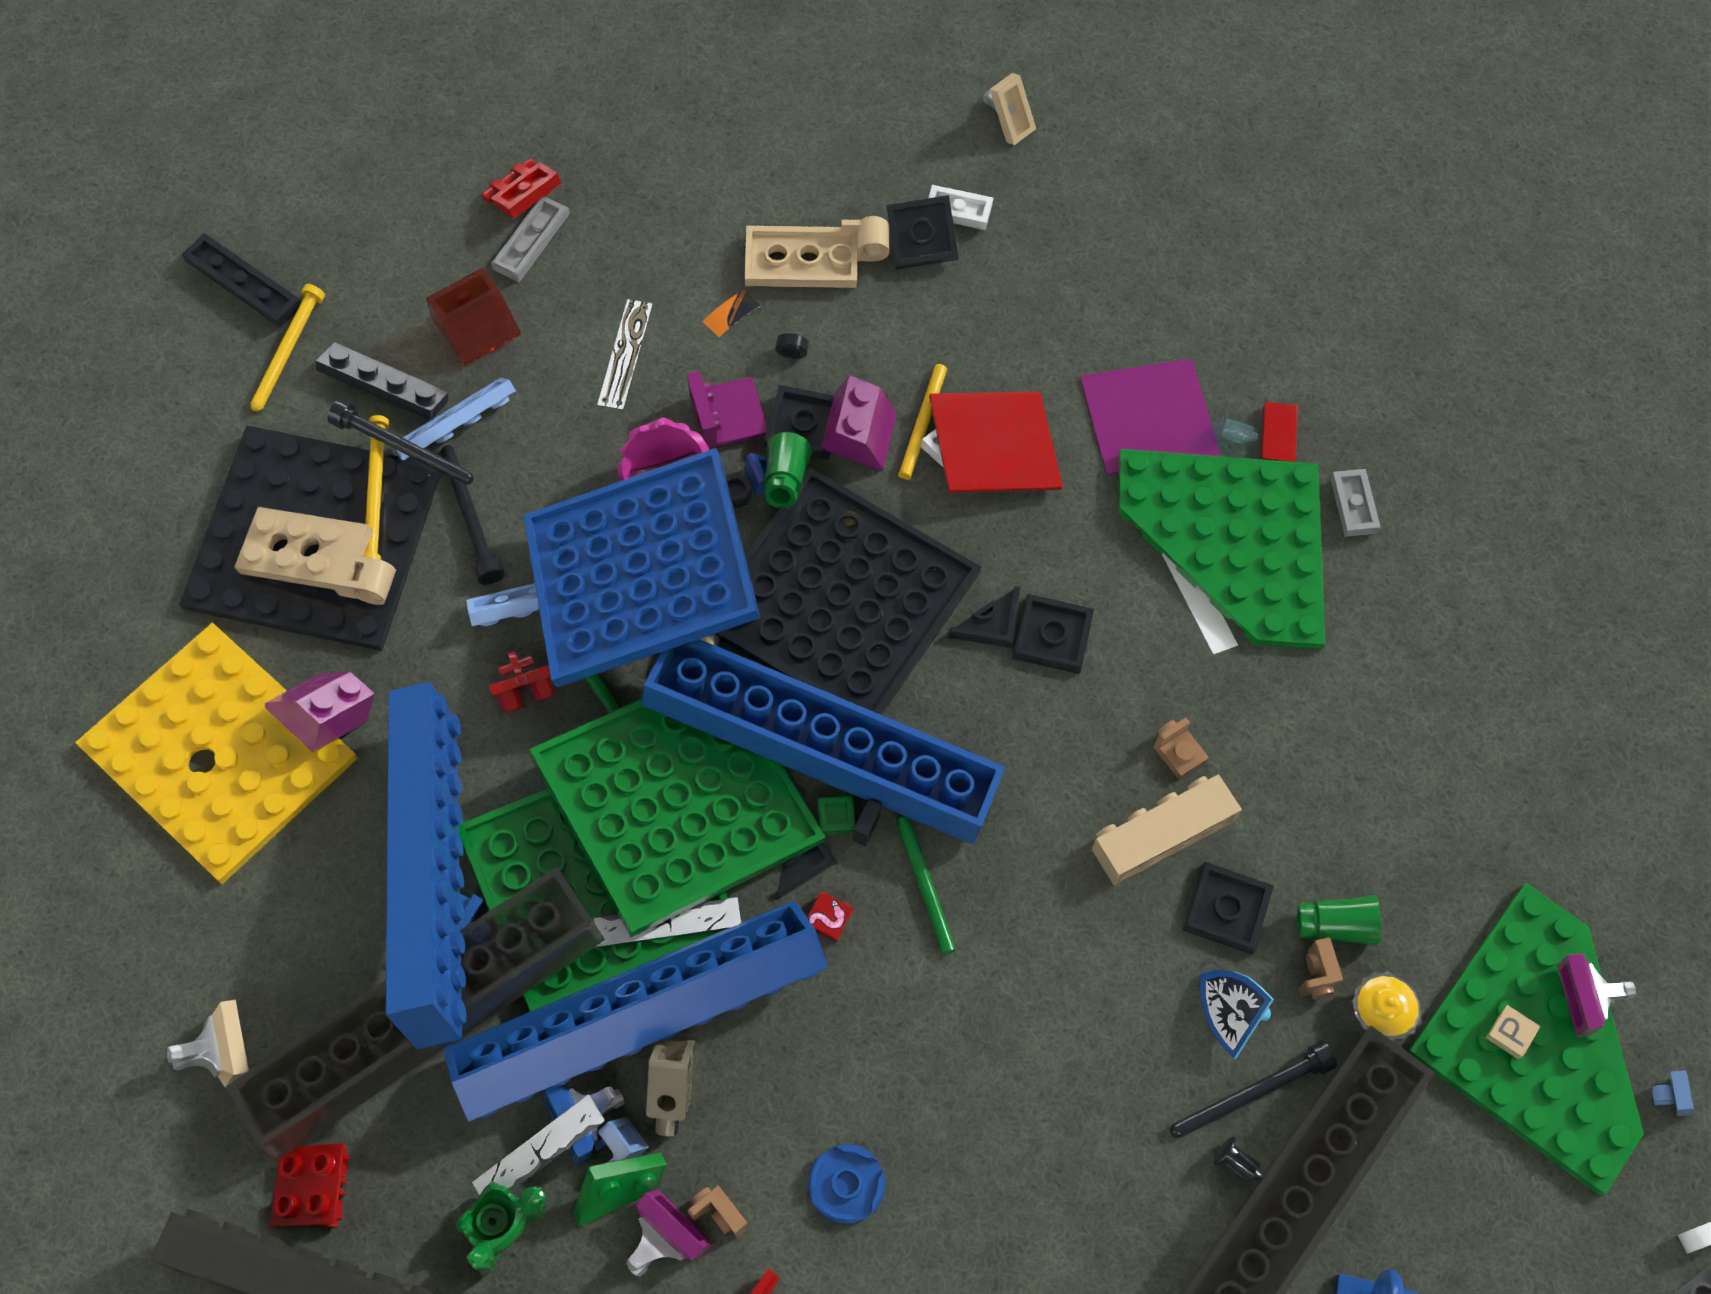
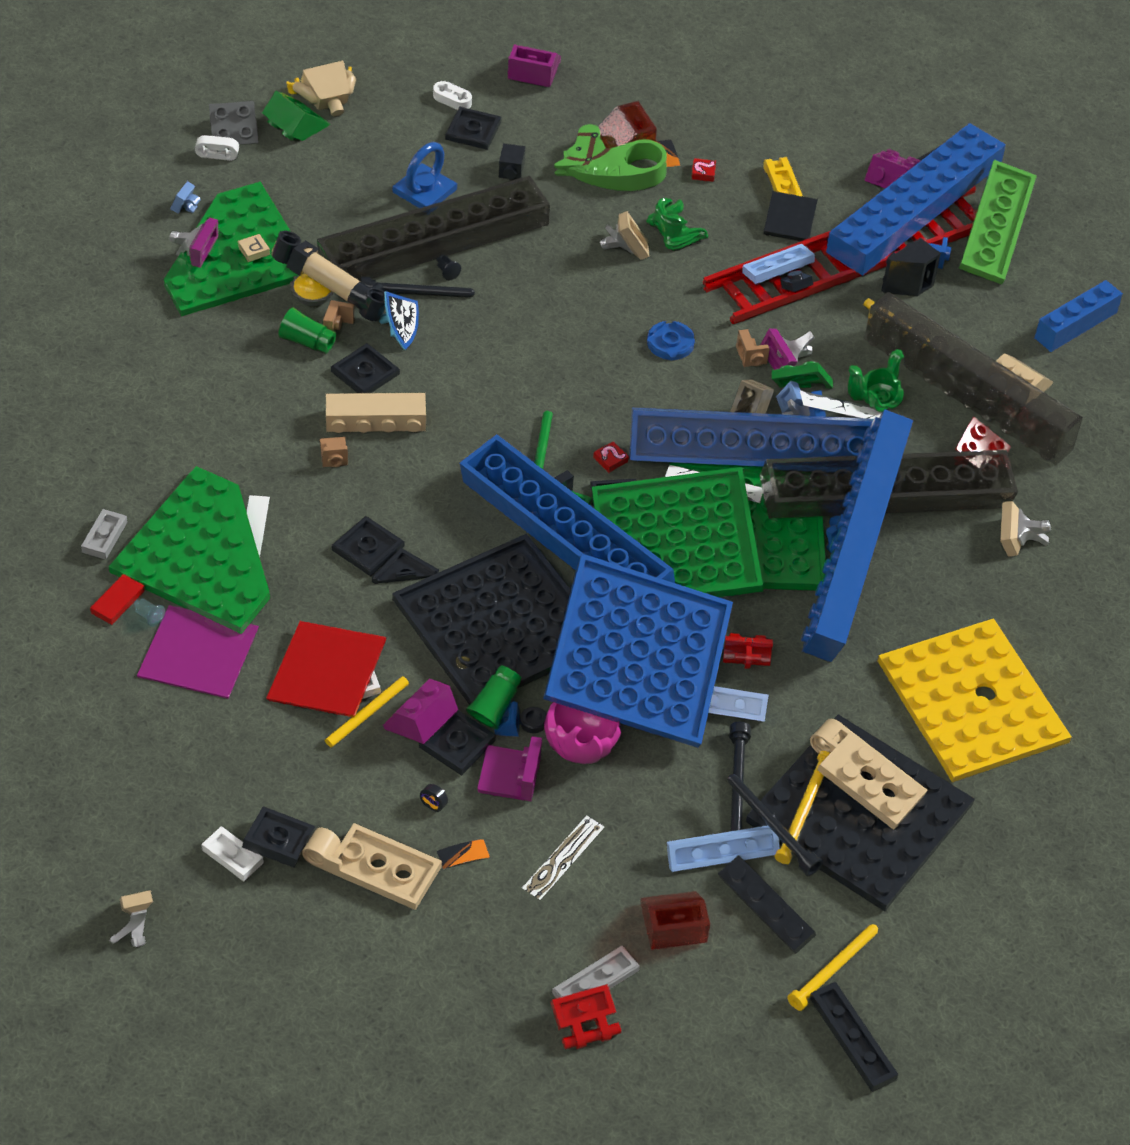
camera: 155 degrees left, 15 degrees down
(323, 708) = (893, 680): magenta slope -> none
(1368, 1007) = (305, 259): none -> black piece

